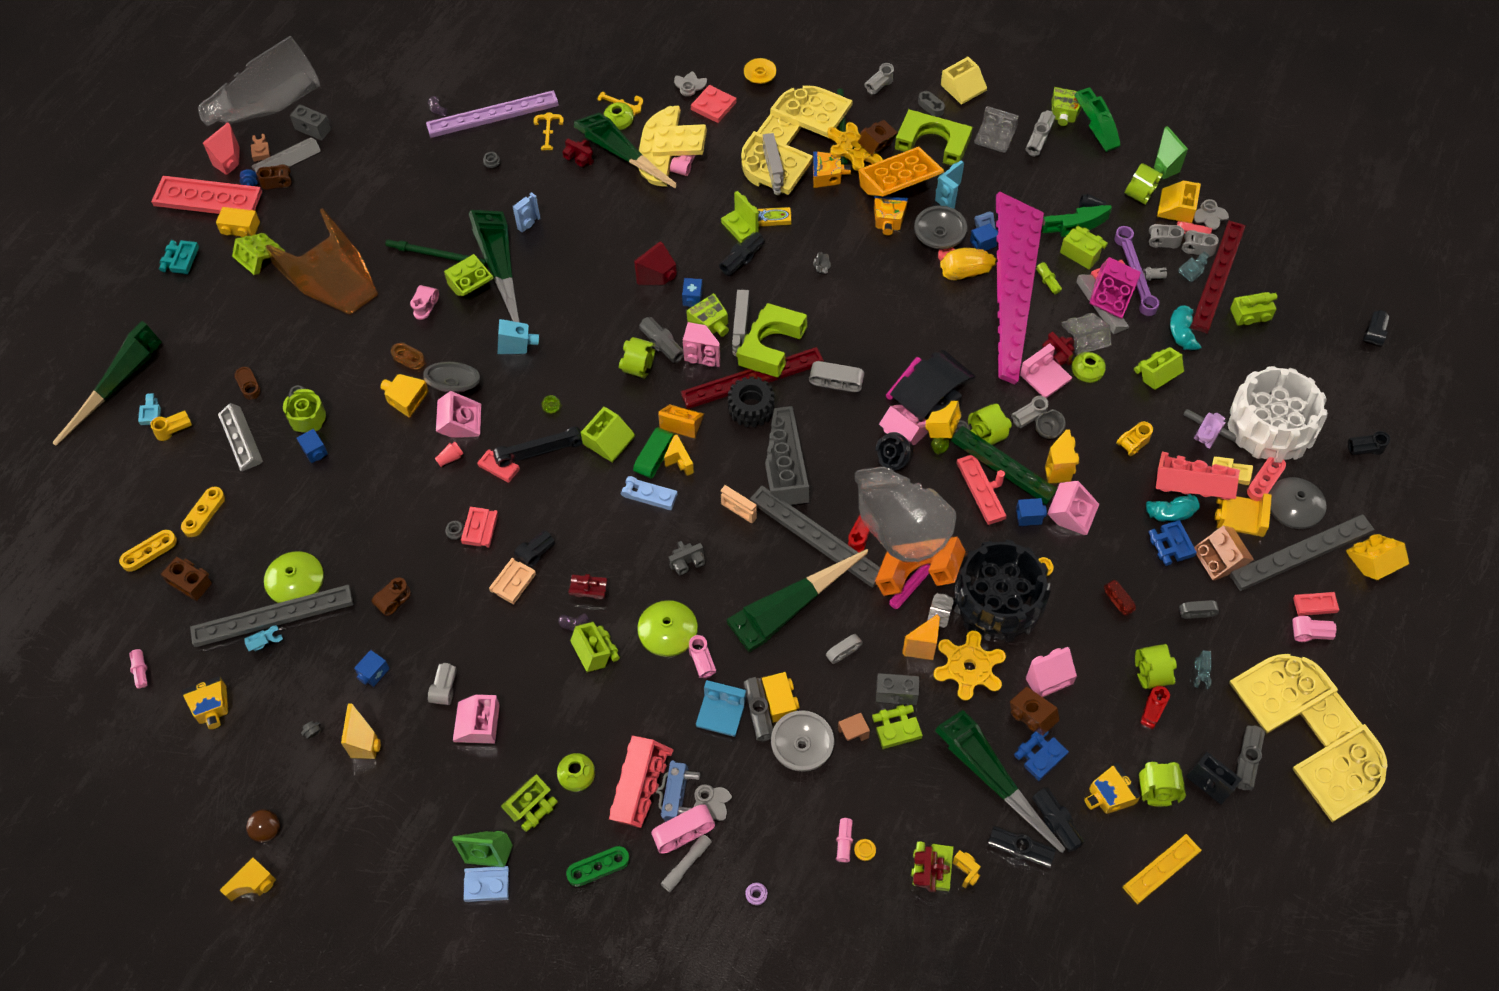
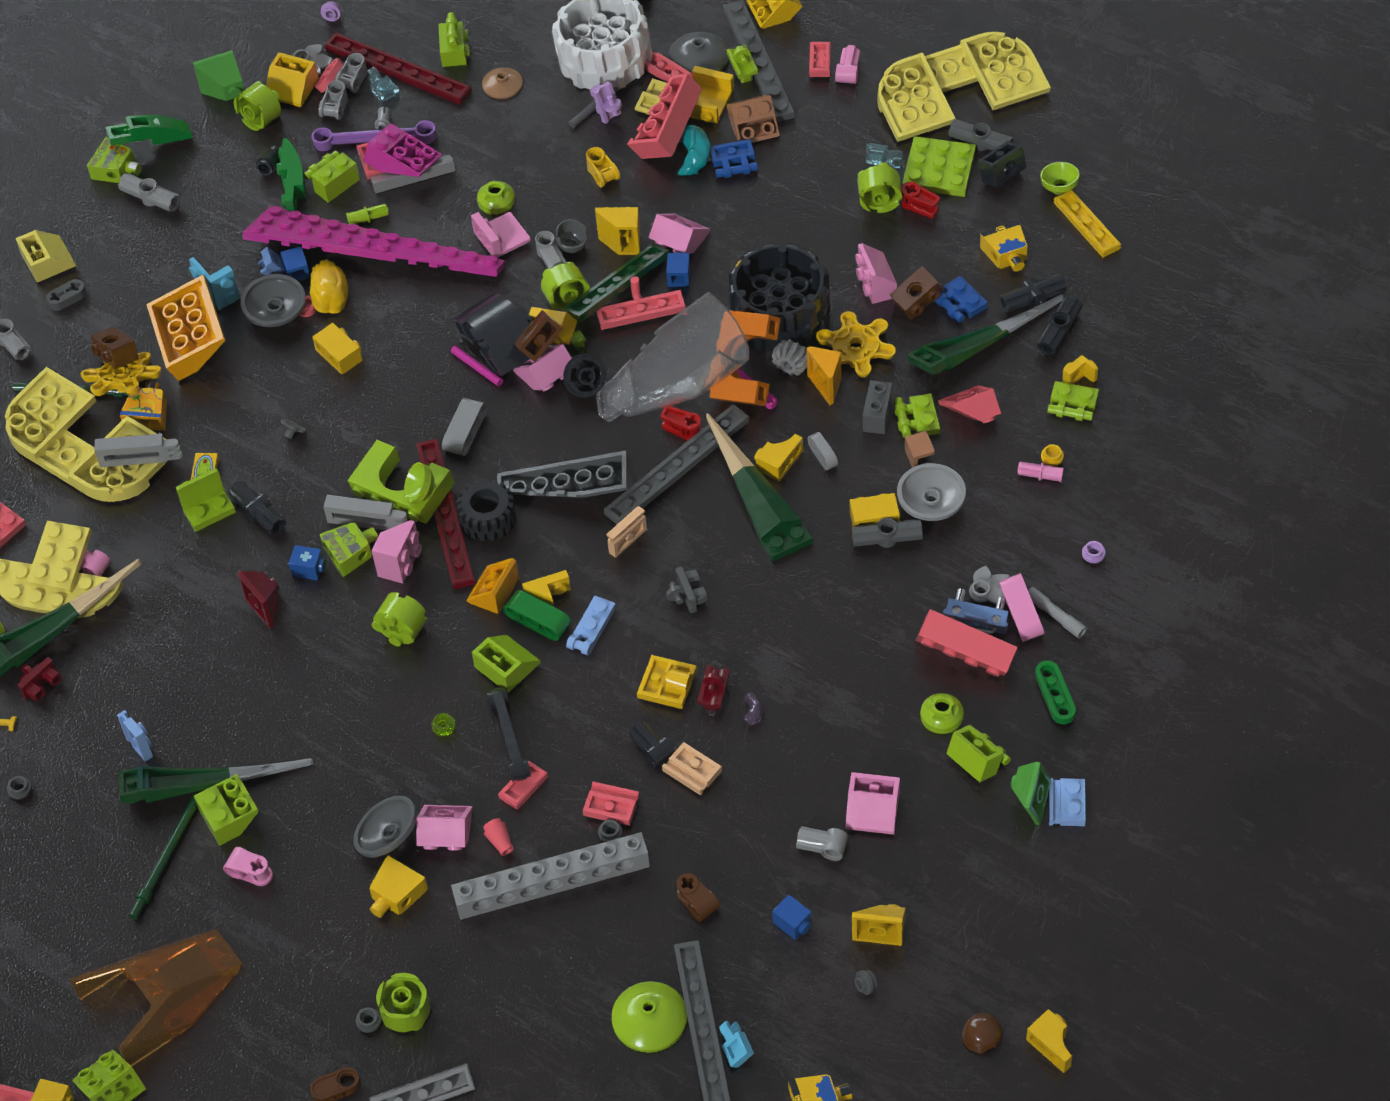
camera: 80 degrees left, 5 degrees down
(312, 446) = (458, 995): blue brick -> none
(409, 357) = (332, 887): clear orange plate -> none
(412, 494) = (550, 875): none -> light grey brick
(514, 337) = (337, 747): medium azure torso -> none
(593, 646) = (794, 685): lime brick -> none
(595, 553) = (667, 681): none -> yellow plate
(662, 338) = (370, 599): dark grey piece -> none
(667, 638) = (776, 627): lime dish -> none
(701, 658) = (809, 583): bright pink piece -> none
(721, 708) = (882, 568): dark azure bracket -> none
(755, 345) = (419, 483): none -> lime piece
(829, 613) = (777, 458): none -> yellow arch
(889, 213) = (235, 353): light orange torso -> none
(903, 279) = (337, 348): none -> yellow brick
(912, 770) = (976, 403): none -> coral slope
(919, 124) = (128, 273): lime arch -> none
(919, 406) = (538, 336): none -> reddish brown brick
(933, 869) = (1083, 391): dark red hips -> none
(996, 129) = (132, 234): clear bracket -> none
(1063, 348) = (462, 217): dark red hips -> none
(1088, 332) = (448, 186): clear bracket -> none
(1119, 597) = (792, 209): clear red beam -> none
(1160, 367) = (518, 130): lime brick -> none
(1161, 784) = (1005, 202): lime brick -> none
(1179, 325) = (458, 107): teal animal -> none
(1199, 609) = (814, 149): dark grey beam -> none
(1205, 723) = (940, 165): none -> lime plate
(1215, 830) = (1059, 173): none -> lime piece
(1221, 360) = (502, 83): none -> medium nougat dish
(1267, 217) = (332, 7): none -> lavender plate
(1290, 535) = (742, 63): none -> lime hips

